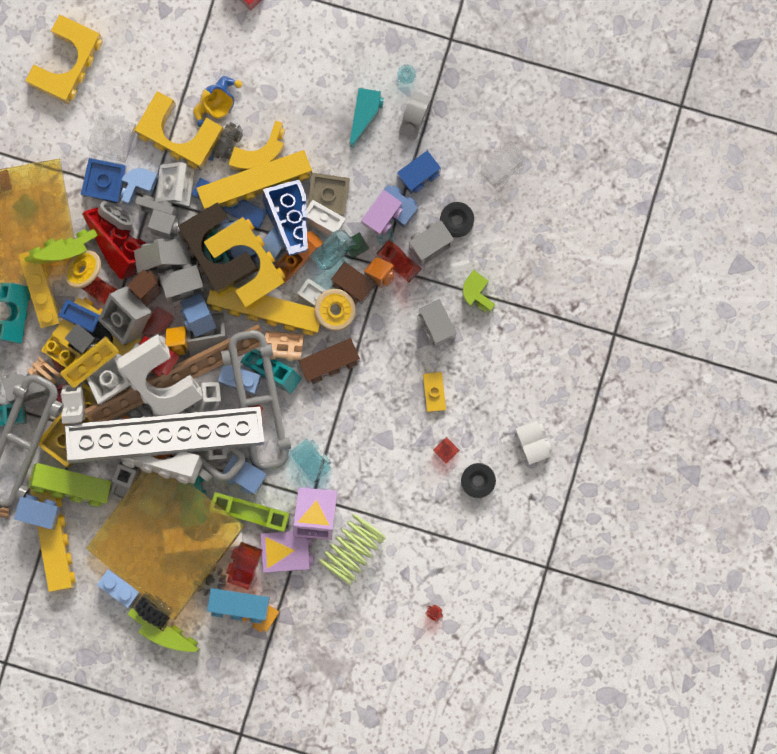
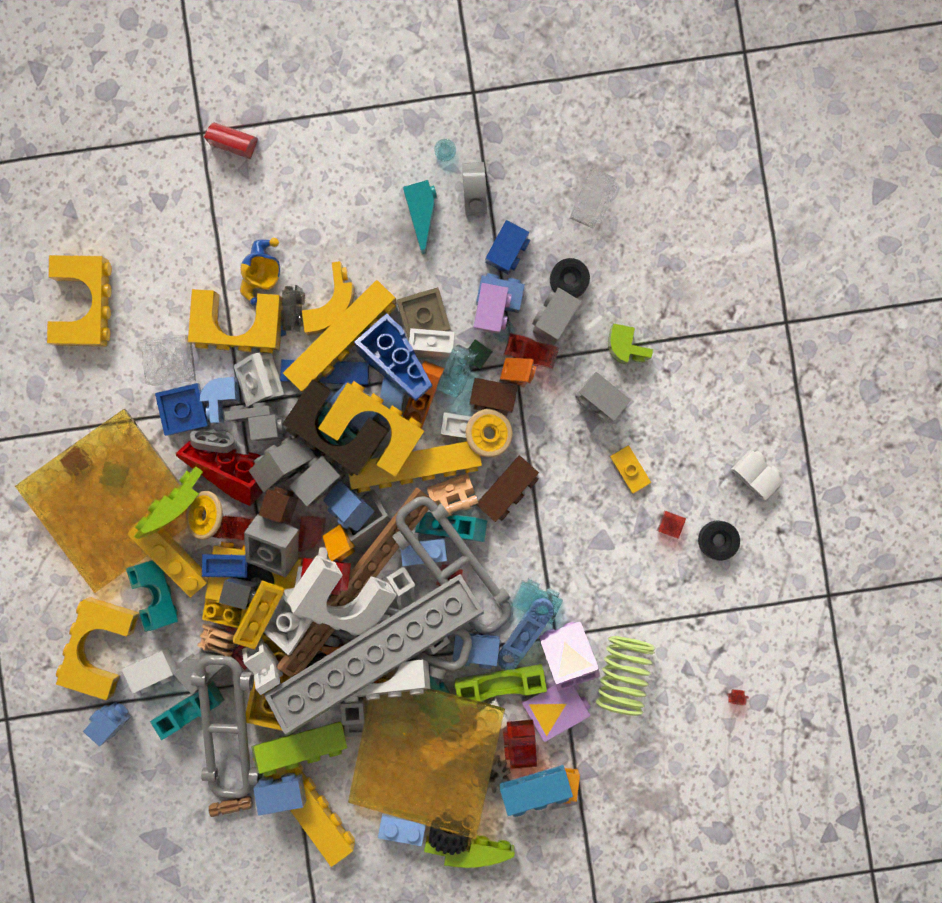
camera: 30 degrees left, 5 degrees up
(288, 480) = (525, 634): none -> medium blue plate

